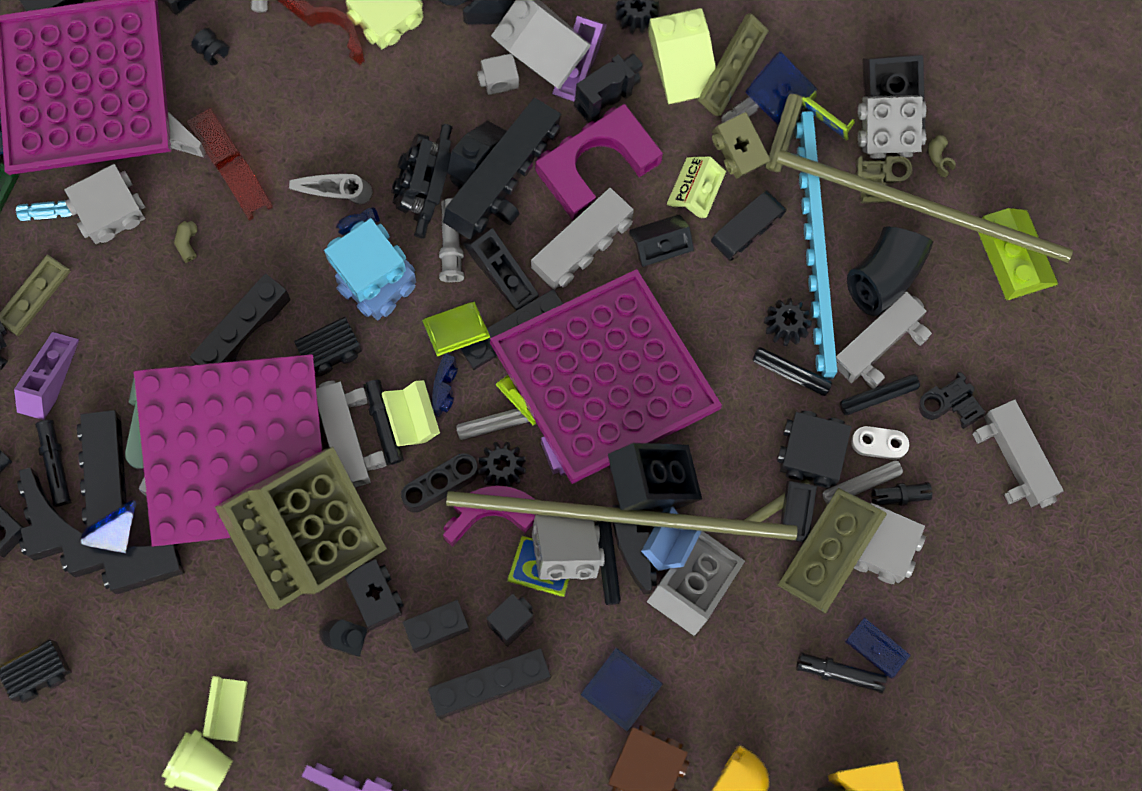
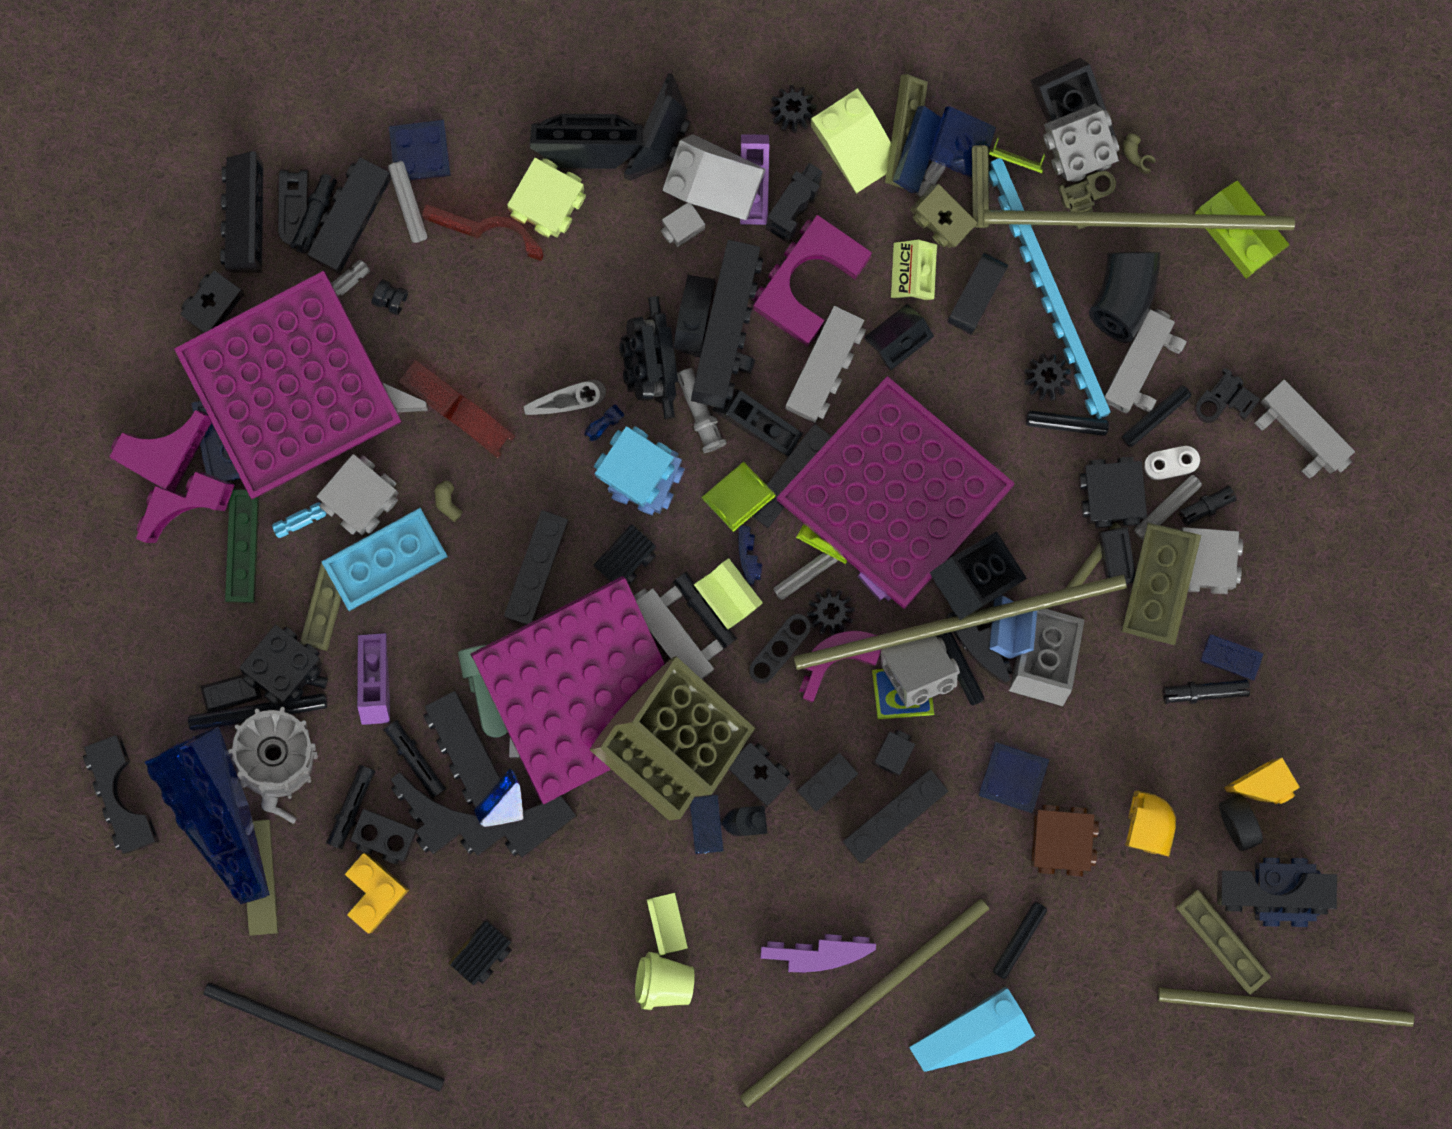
camera: 20 degrees left, 10 degrees up
(105, 271) = (384, 559): none -> medium azure tile
(181, 21) = (350, 277): none -> light grey axle
(304, 626) = (706, 824): none -> clear blue tile
(734, 84) = (917, 149): none -> dark blue tile

